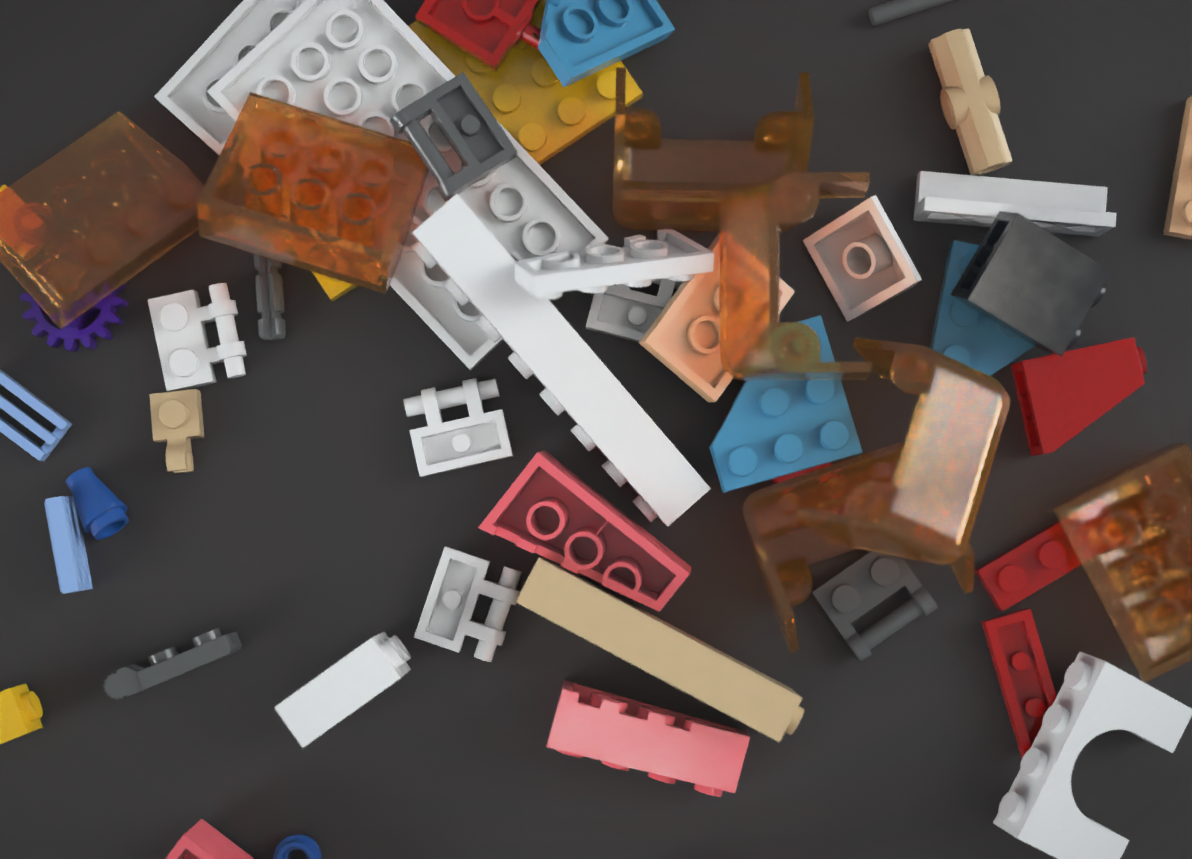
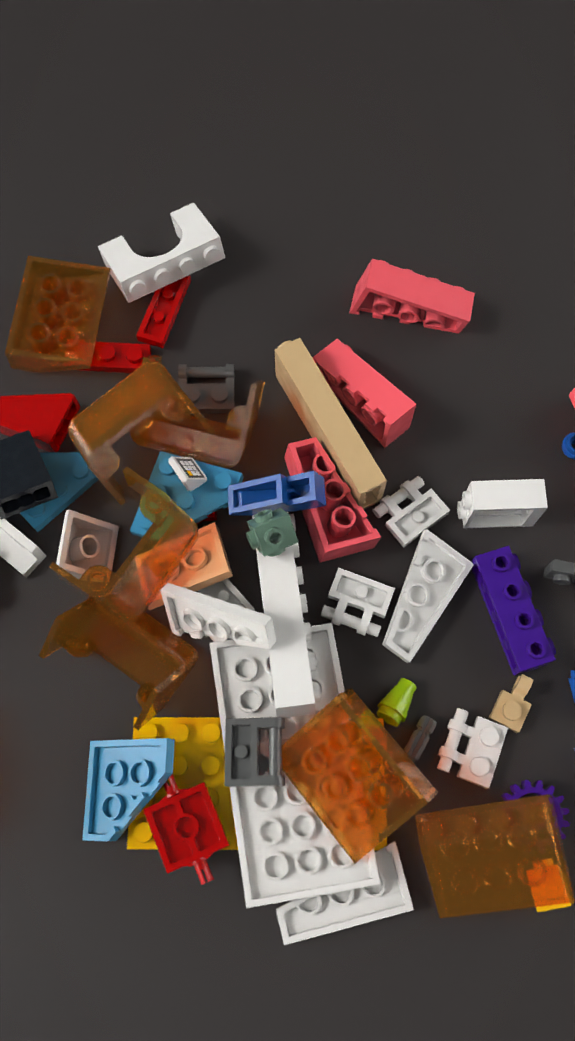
camera: 145 degrees left, 15 degrees down
(248, 550) = (512, 610): none -> dark purple brick
(324, 327) = (397, 703): none -> lime cone
(375, 502) = (427, 590): none -> white wing
(620, 421) = (271, 532): none -> sand green brick
(652, 485) = (277, 491): none -> blue slope
(796, 438) = (188, 472): none -> white slope

